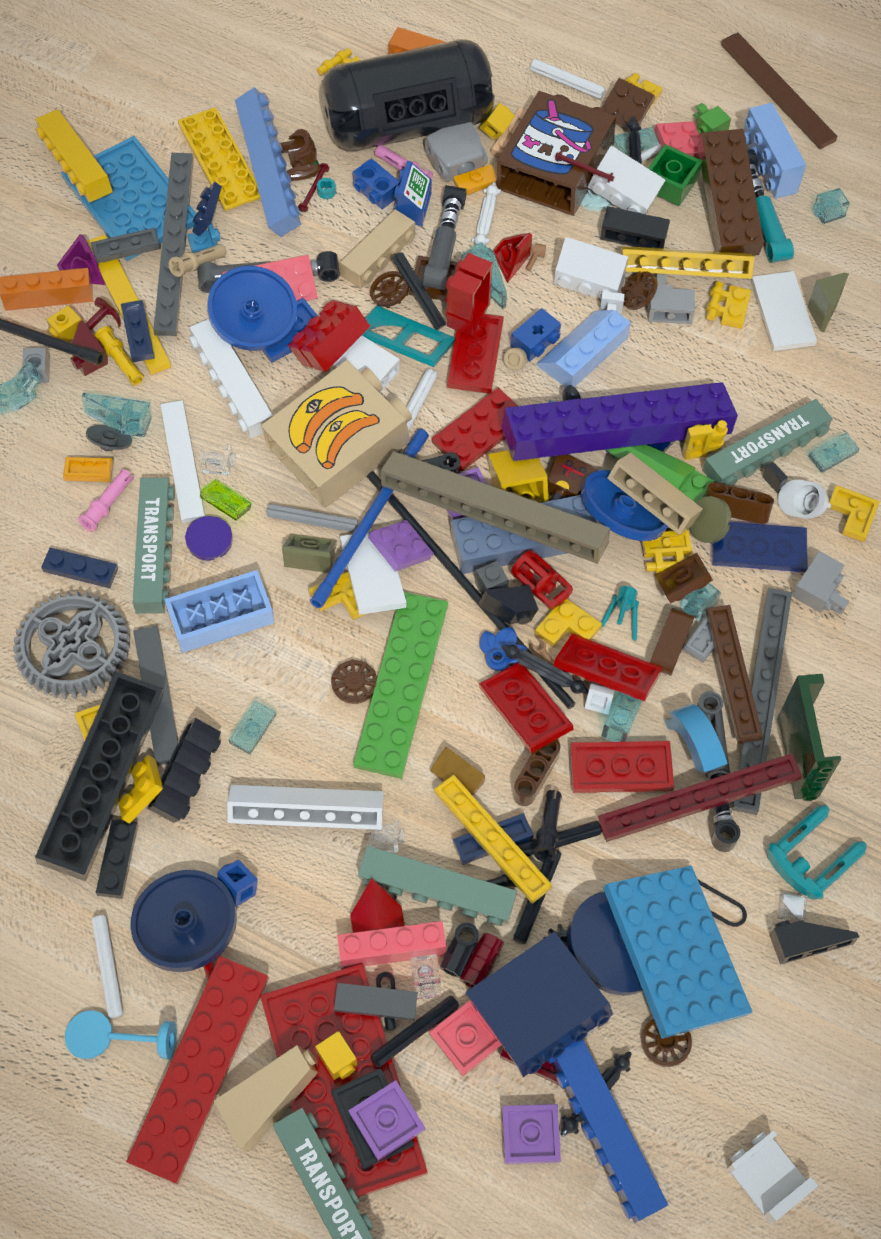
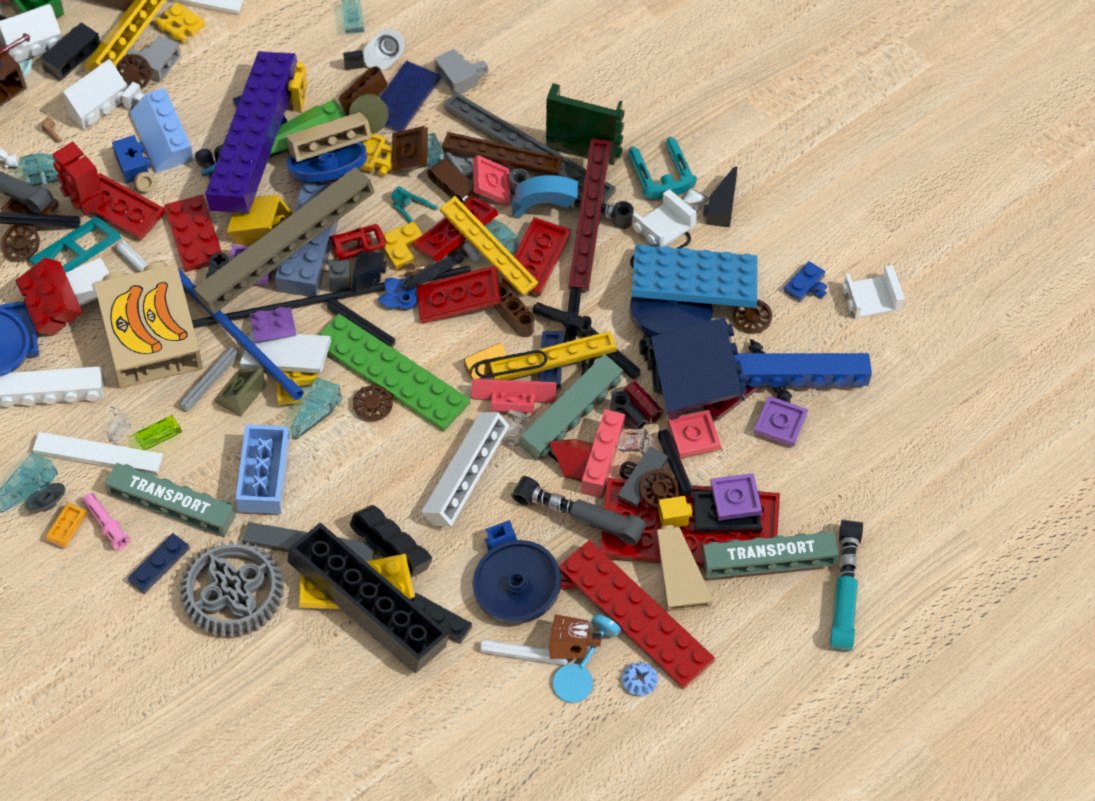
camera: 65 degrees left, 5 degrees down
(120, 1120) = (636, 686): none -> light blue gear
(133, 1007) = (571, 638): none -> dark orange torso
(208, 538) = (185, 459): dark purple tile -> none
(252, 727) = (376, 485): clear light blue plate -> none
(300, 950) = (626, 528): none -> piece
(324, 629) = (316, 407): none -> clear light blue slope
(364, 1026) = (658, 488): none -> reddish brown wheel
(424, 818) = (513, 394): none -> coral bracket
(447, 628) = (338, 308): none -> black axle
(452, 804) = (511, 356): none -> black piece
(513, 253) = (37, 140): red slope -> none
(567, 477) = (281, 184): reddish brown torso -> none
(595, 709) = (488, 246): none -> yellow tile
(692, 675) = (491, 180): none -> coral plate
(741, 886) = (666, 221): none -> white panel
(747, 1086) = (807, 281): none -> blue plate
(768, 444) = (322, 51): sand green brick -> none
(858, 507) = (414, 22): yellow plate -> none

